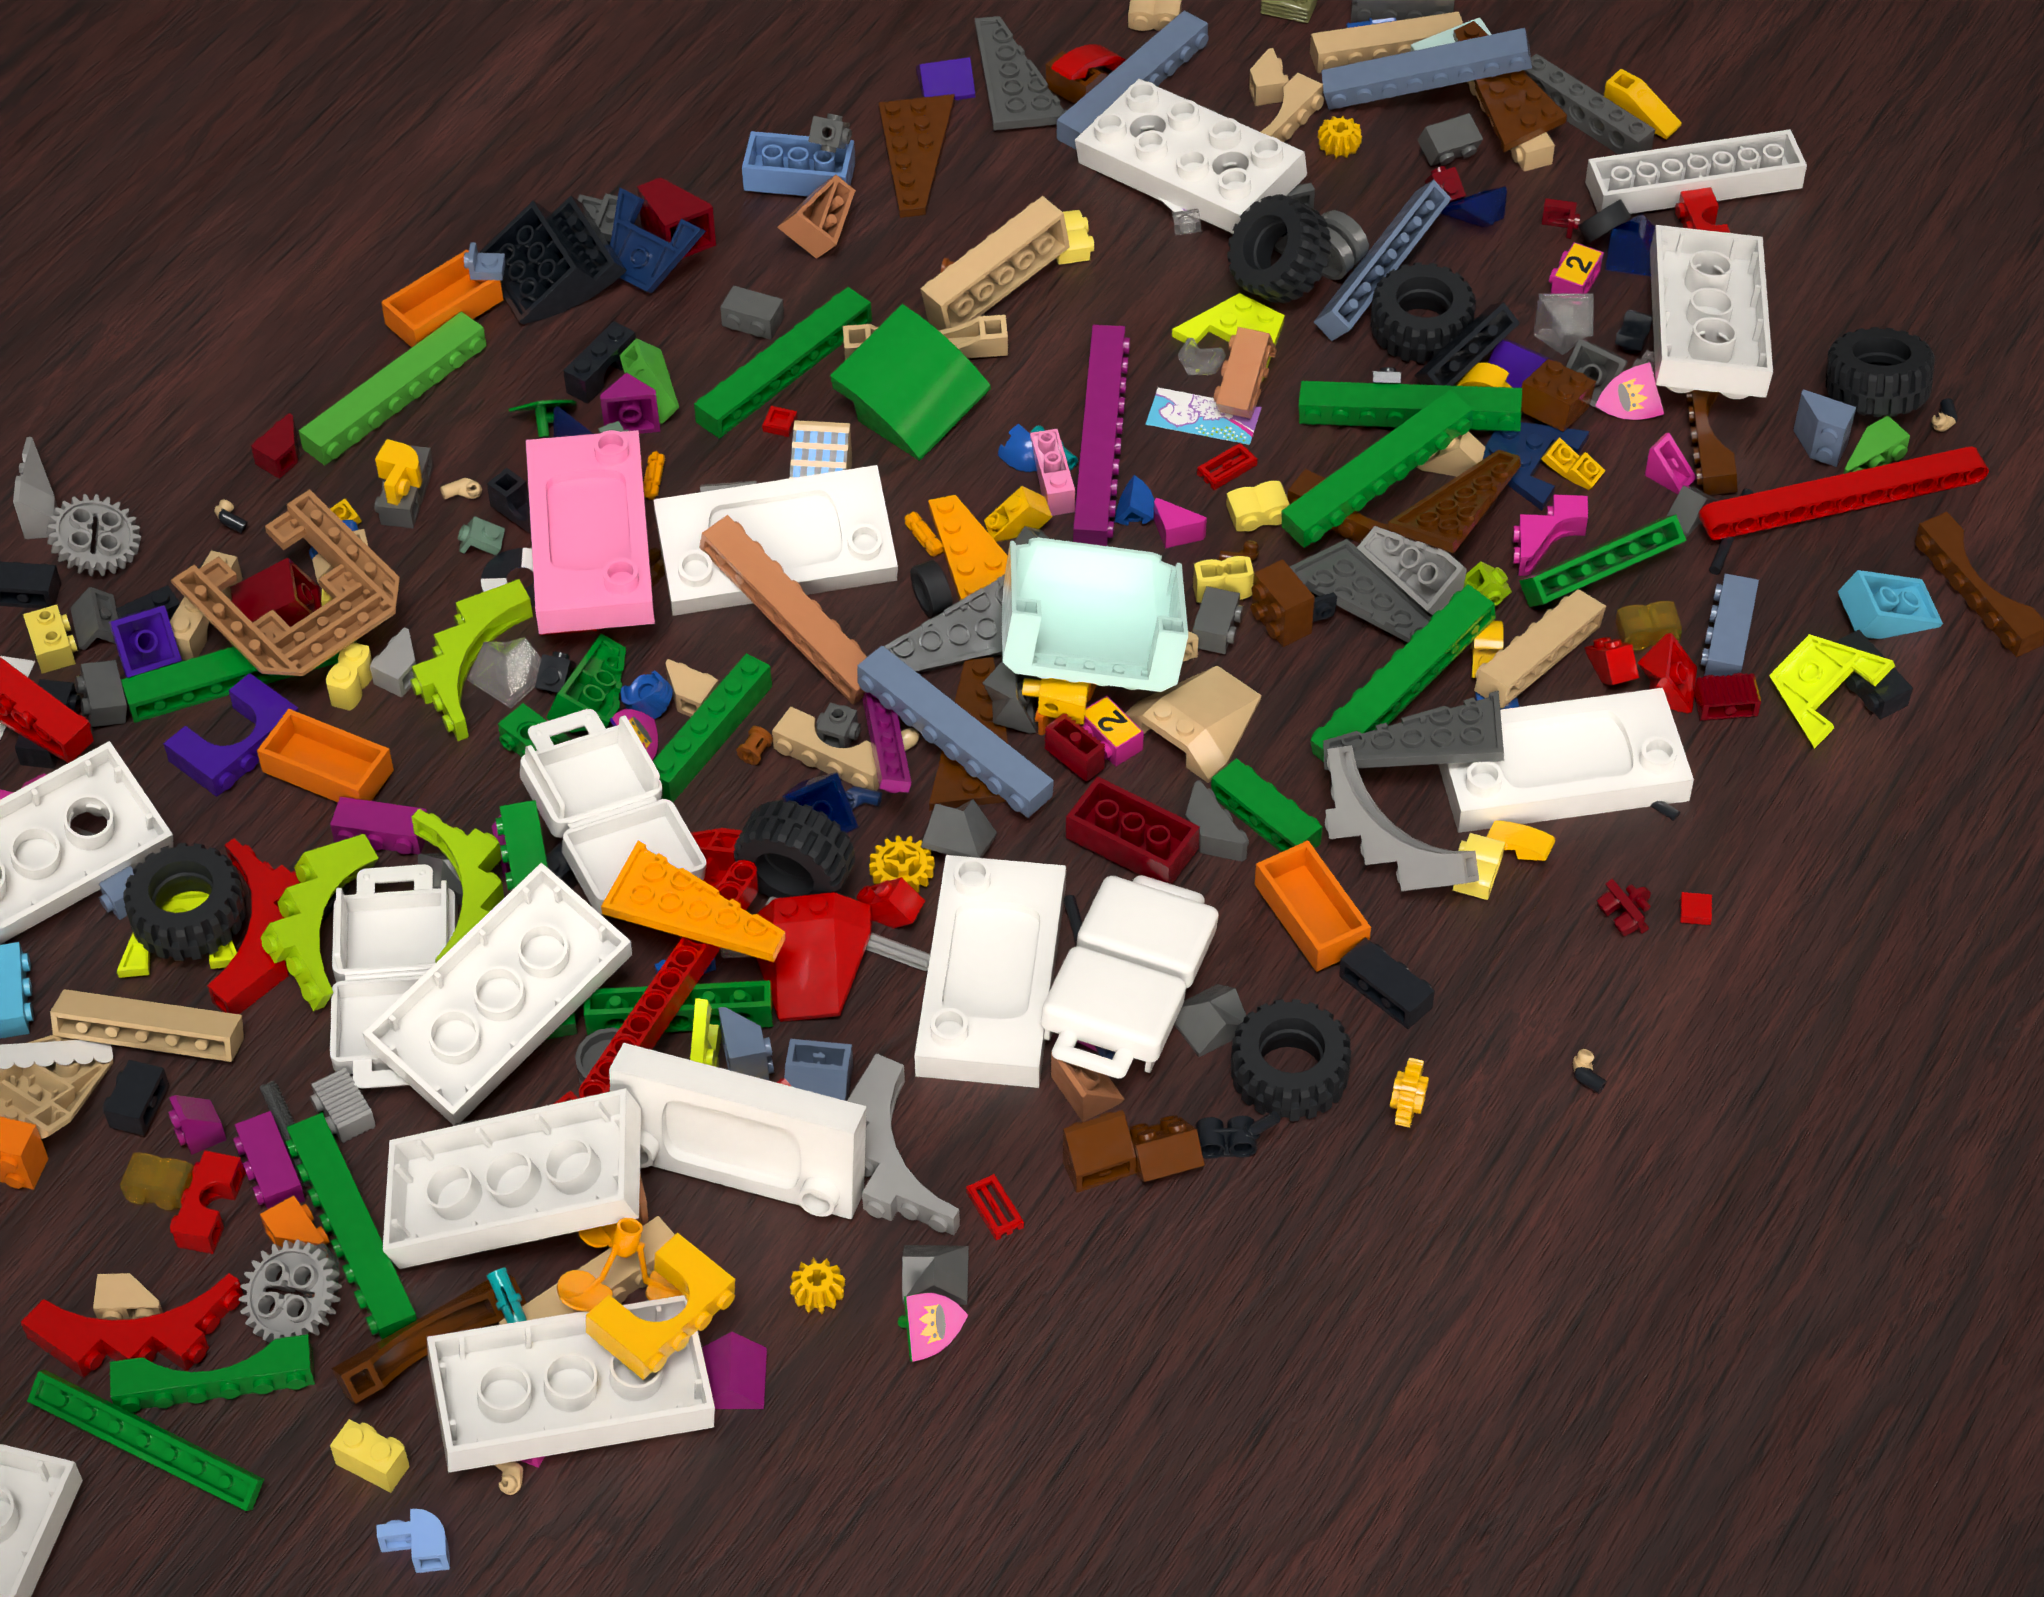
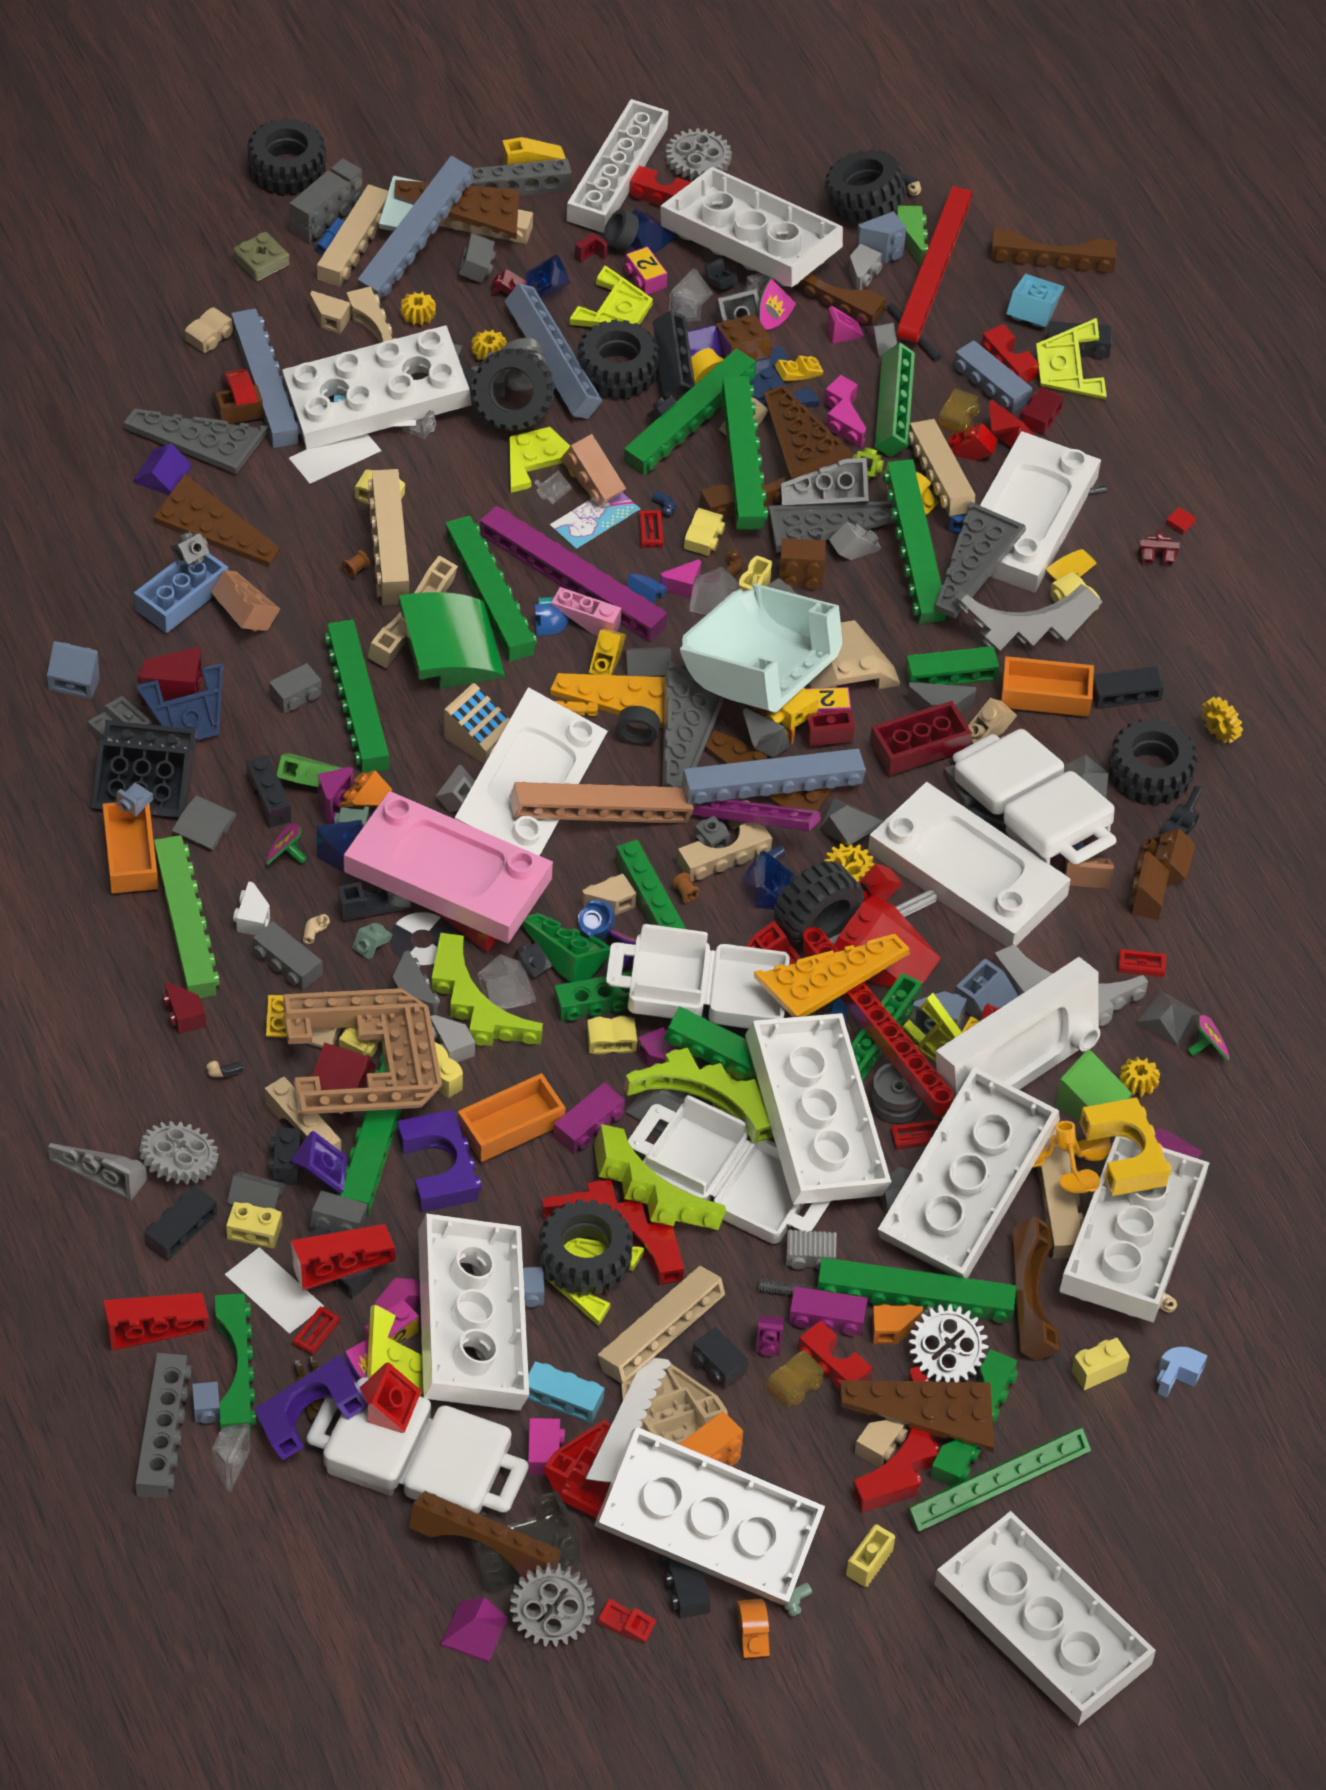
camera: 60 degrees left, 0 degrees up
(187, 1326) = (936, 1408): none -> reddish brown wing
(400, 468) = (286, 941): yellow brick -> none
(440, 592) = (409, 978): none -> dark grey slope
(442, 430) = (253, 911): none -> white slope
(500, 782) = (611, 1035): none -> light yellow brick
(500, 1281) = (1054, 1227): teal pin -> none
(526, 339) = (204, 822): none -> dark grey slope
(625, 148) = (73, 670): none -> sand blue slope
(655, 432) = (367, 791): none -> orange slope
(751, 1246) = (1088, 1085): none -> bright green slope
(779, 421) = (405, 728): red tile -> none
(1017, 384) = (490, 587): none -> green brick
(1085, 184) = (330, 458): none -> white sticker
(1184, 548) = (711, 590): none -> clear slope
(1221, 882) = (991, 719): none -> tan slope
(1273, 459) = (667, 501): none -> dark blue arm
(1347, 204) = (486, 343): none -> yellow gear
(1366, 635) = (854, 541): none -> light grey slope
(1511, 283) = (622, 303): none -> neon yellow wing
(1584, 1071) = (1256, 639): black arm -> none
(1774, 438) = (864, 265): none -> light grey slope
(1783, 610) = (1000, 344): none -> red arch
(1789, 227) = (697, 152): none -> light grey gear

